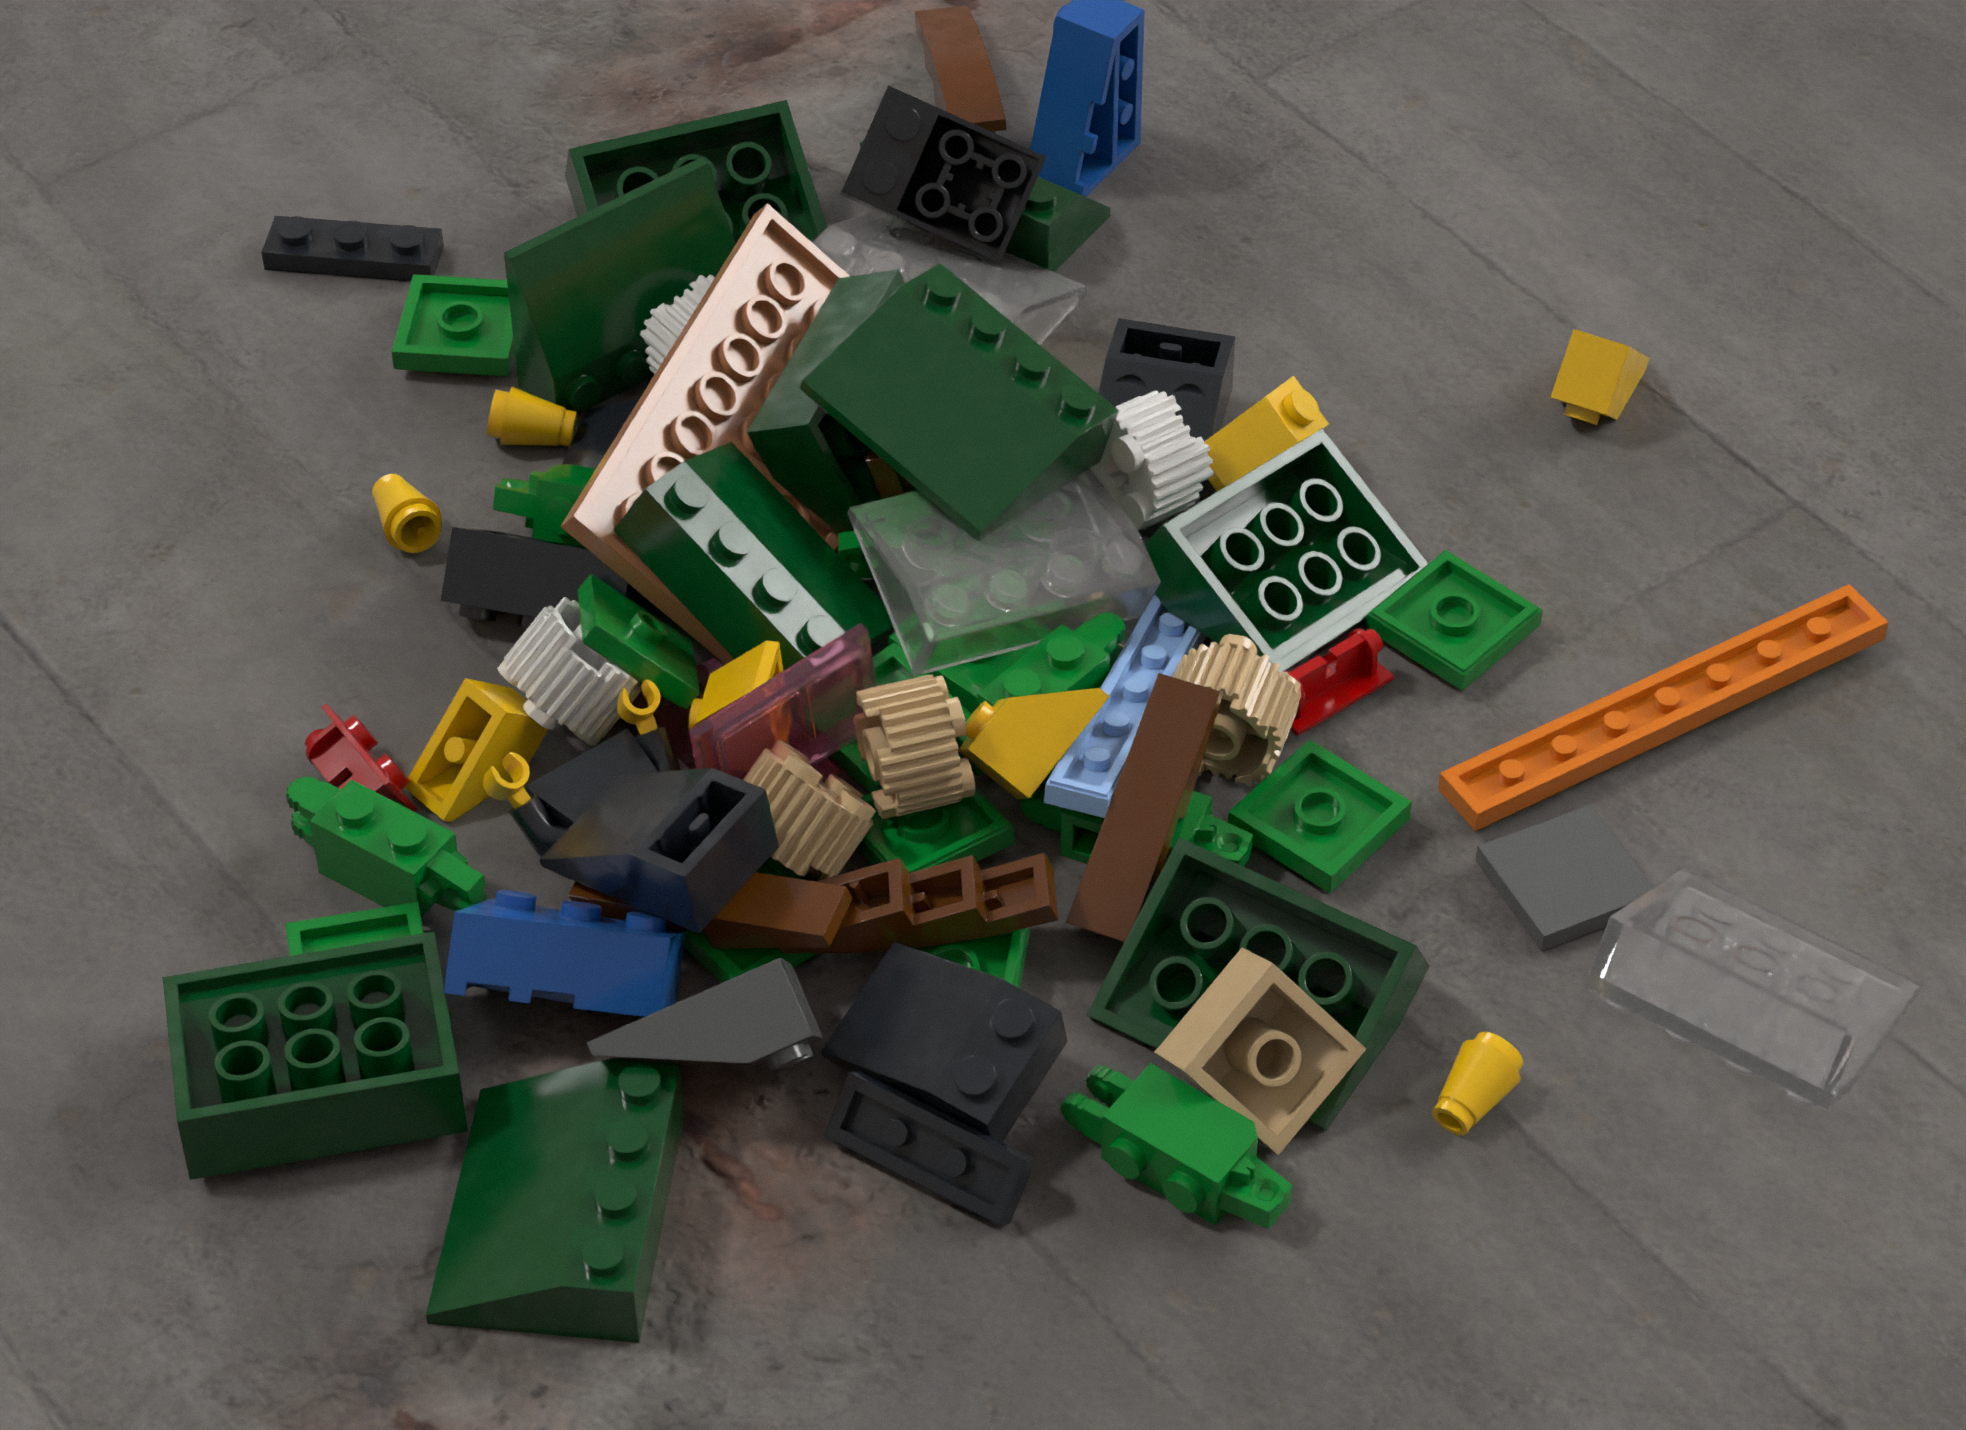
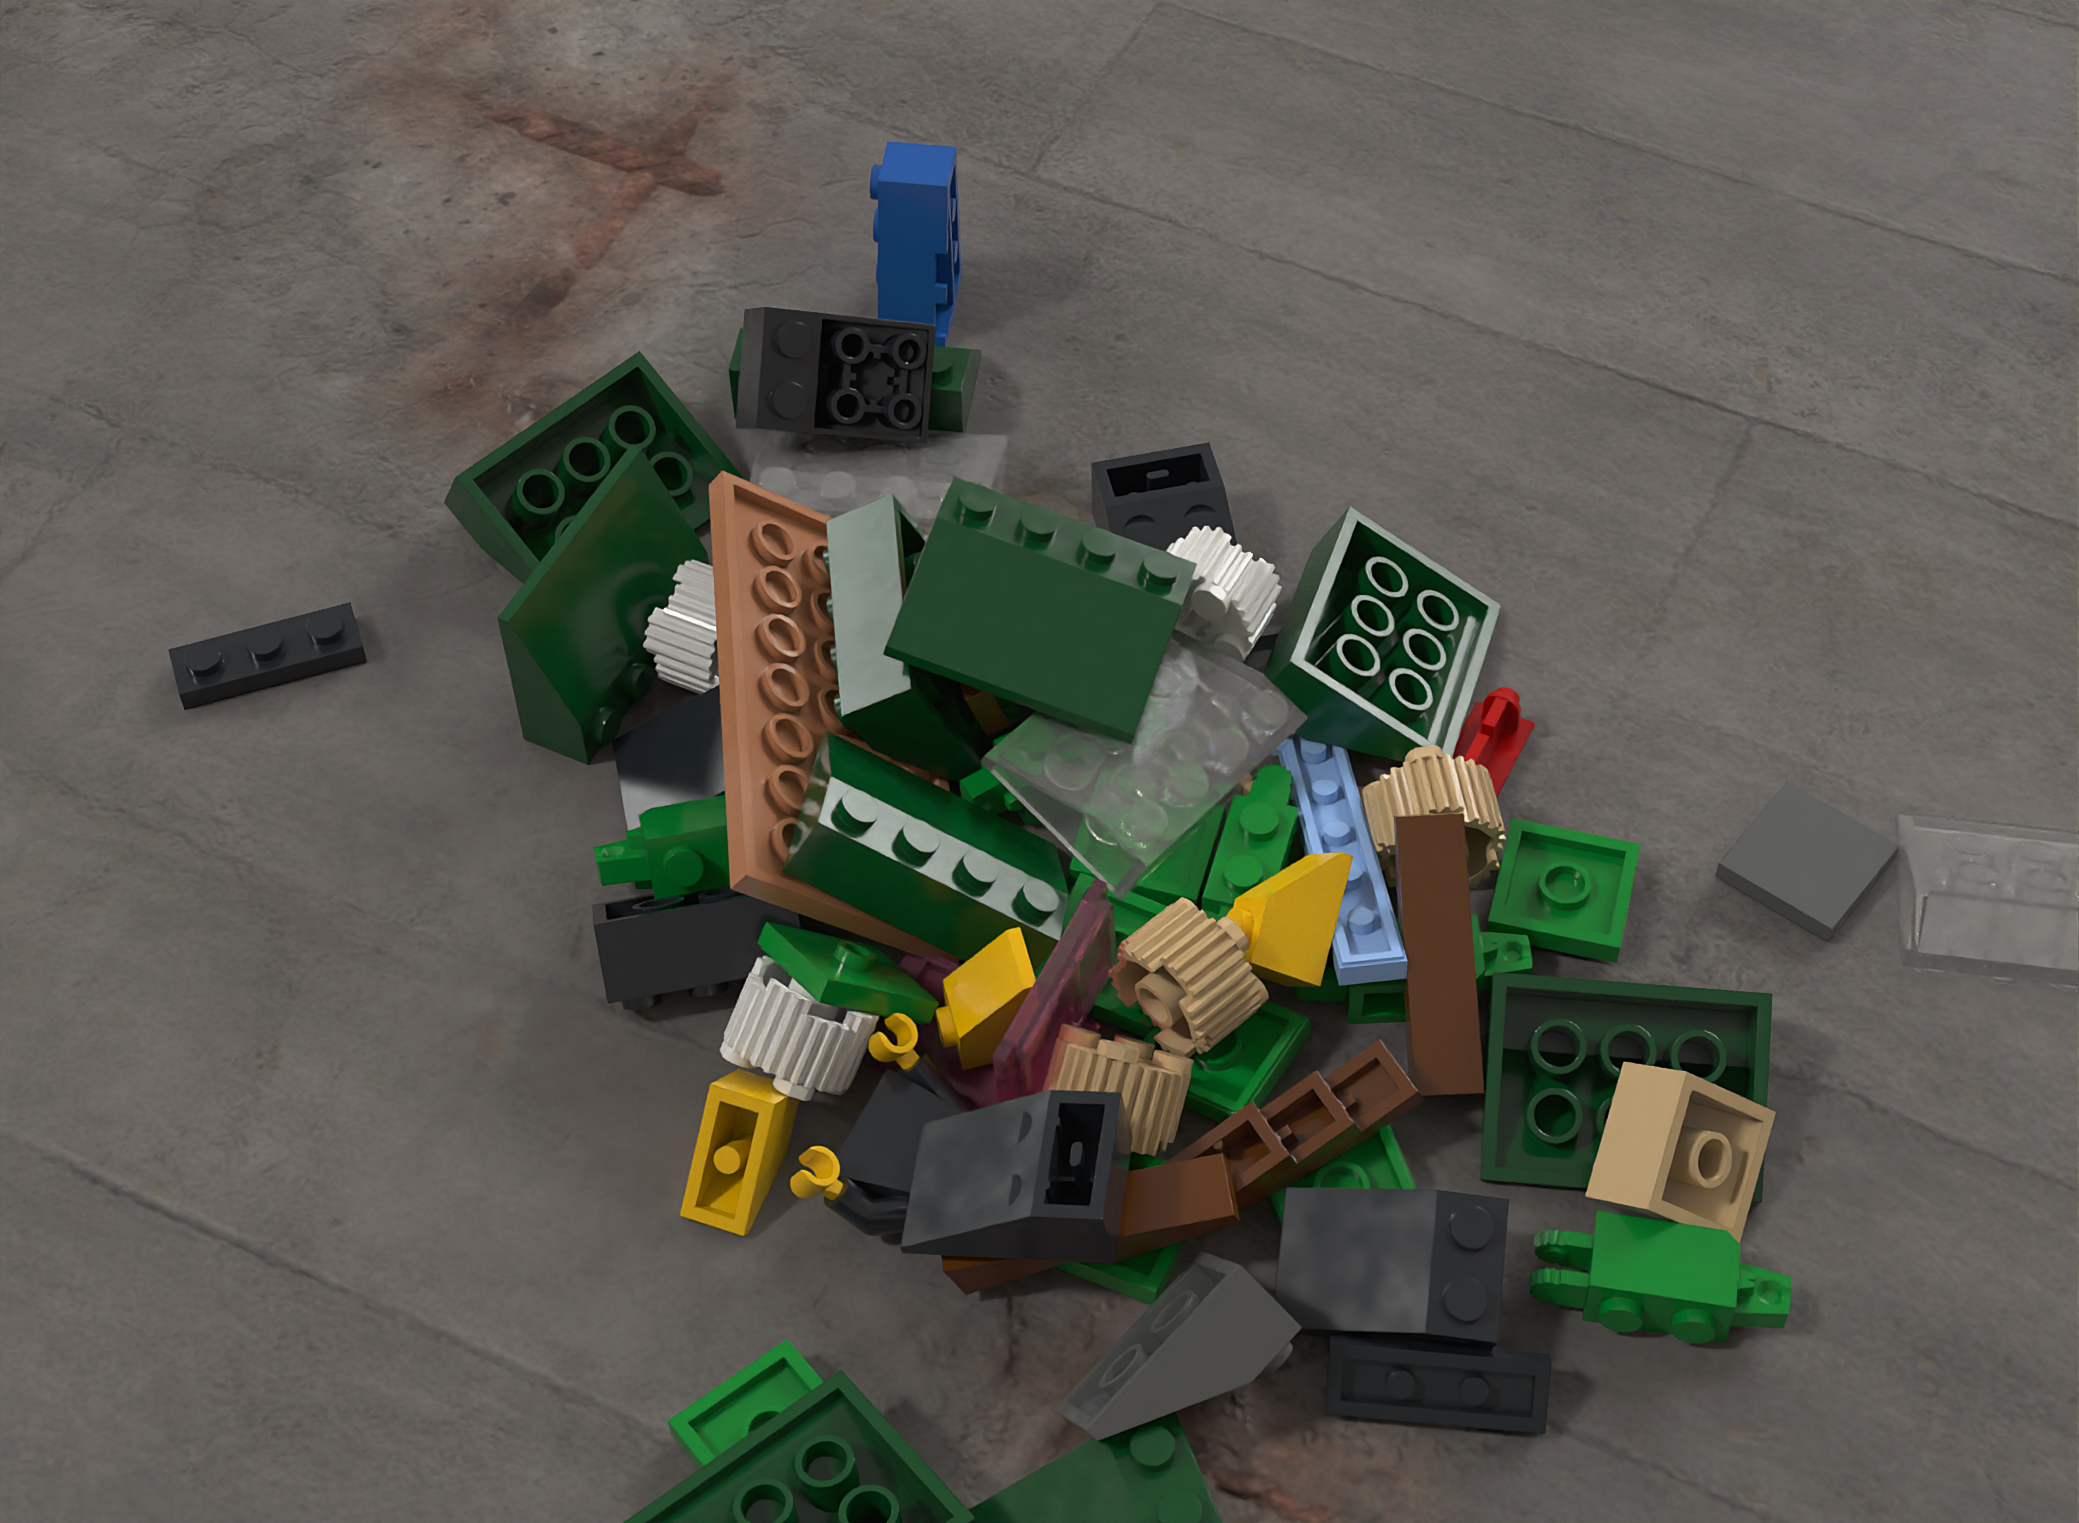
camera: 25 degrees left, 5 degrees up
(346, 749) = (654, 1229): red hinge -> none
(382, 847) = (717, 1296): green hinge -> none
(406, 514) = (505, 921): yellow cone -> none
(455, 327) = (434, 698): green plate -> none
(529, 420) = (567, 773): yellow cone -> none
(565, 955) = (983, 1336): blue wedge -> none
(960, 66) = (759, 257): reddish brown slope -> none
(1263, 432) = (1289, 526): yellow slope -> none
(1454, 619) = (1553, 647): green plate -> none
(1477, 1082) = (1870, 1099): yellow cone -> none
(1597, 377) = (1529, 364): yellow slope -> none
(1661, 707) = (1781, 666): orange plate -> none

